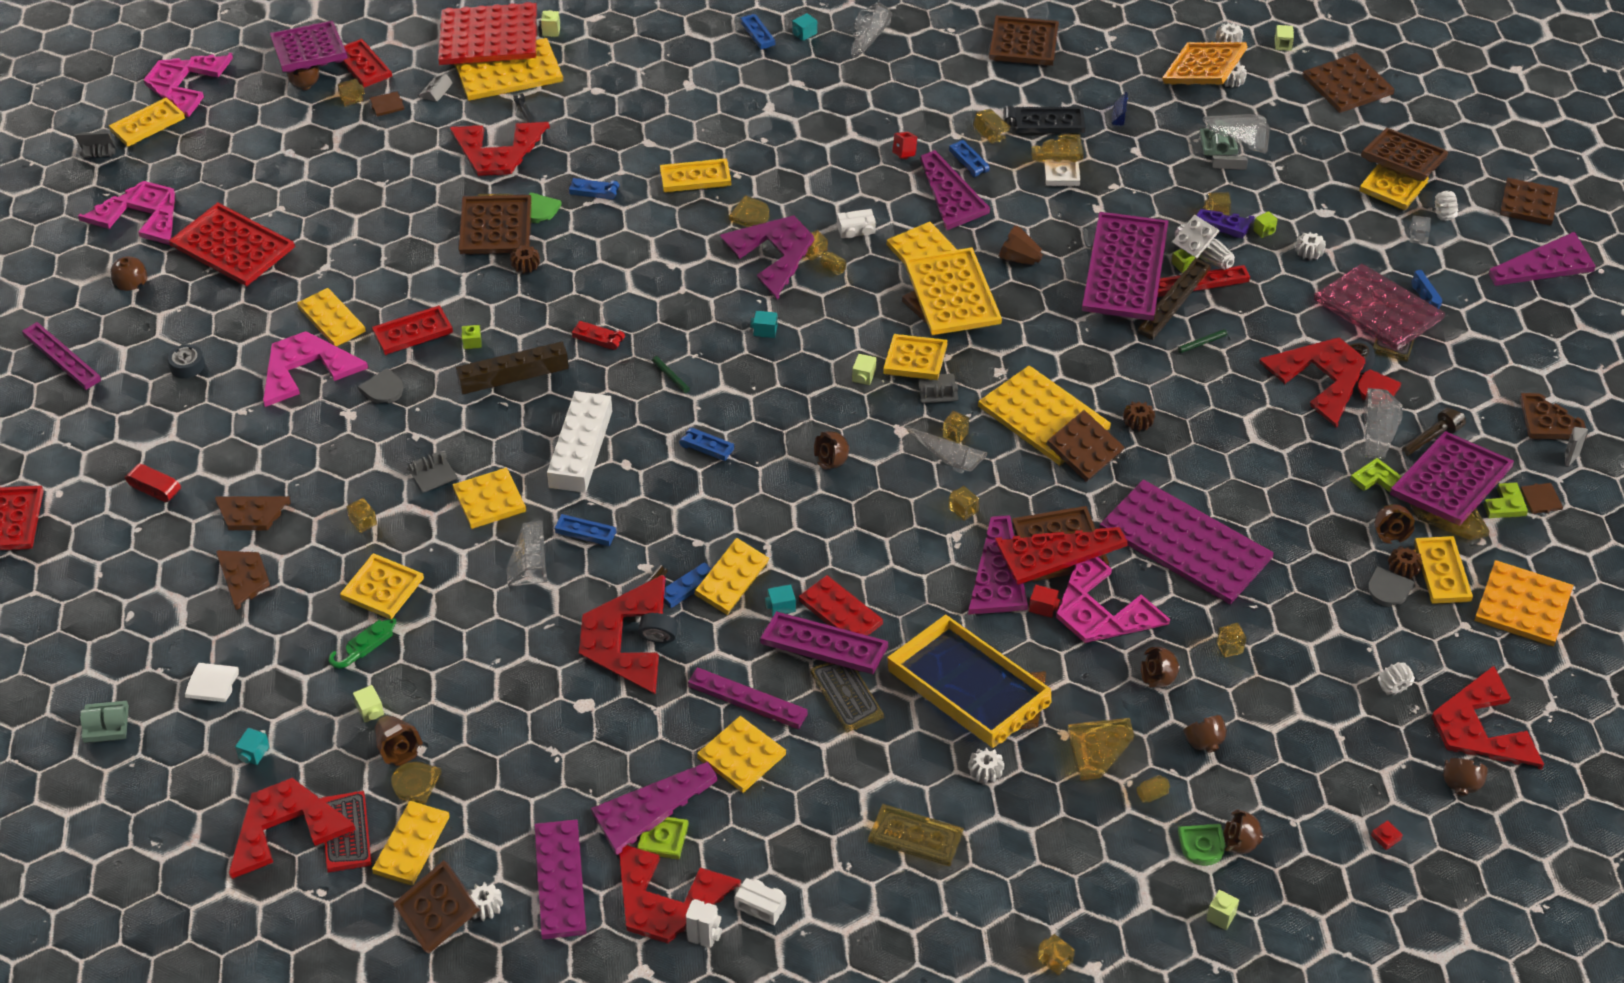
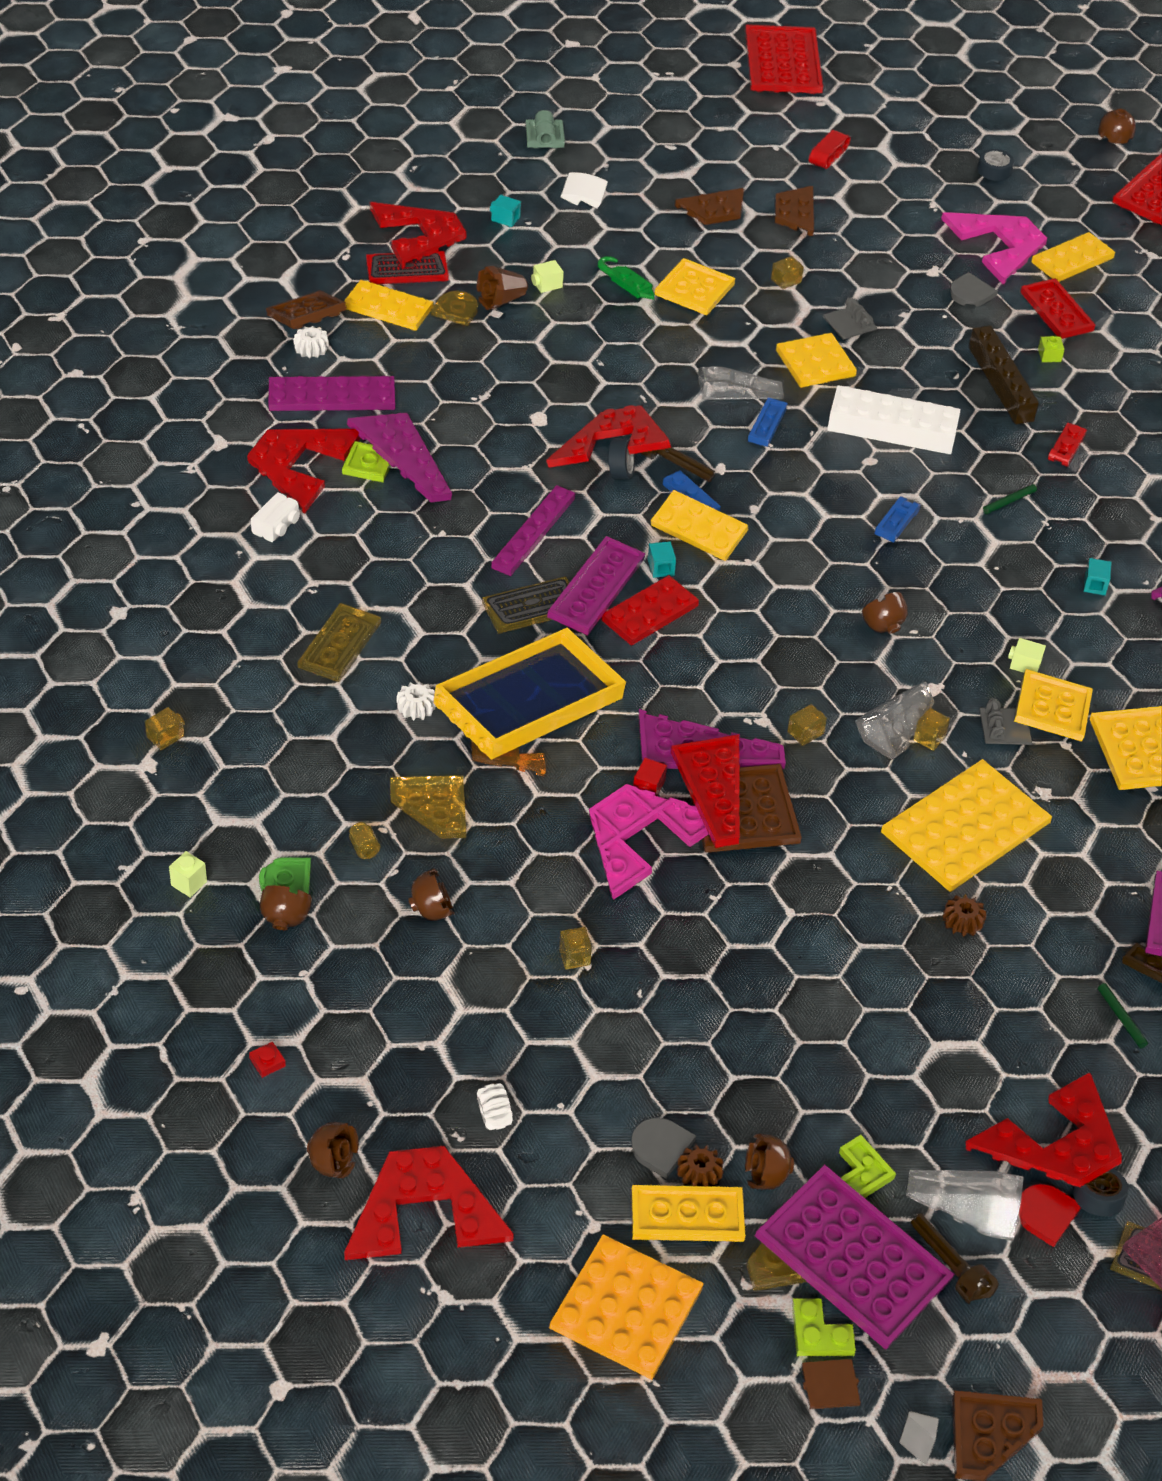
camera: 90 degrees right, 0 degrees up
(61, 355) = (995, 93): magenta plate -> none
(703, 923) = (250, 468): white brick -> none
(741, 754) = (461, 521): yellow plate -> none
(1085, 445) = (905, 849): reddish brown plate -> none
(1159, 667) = (534, 868): reddish brown cylinder -> none
(1188, 541) = (747, 939): magenta plate -> none

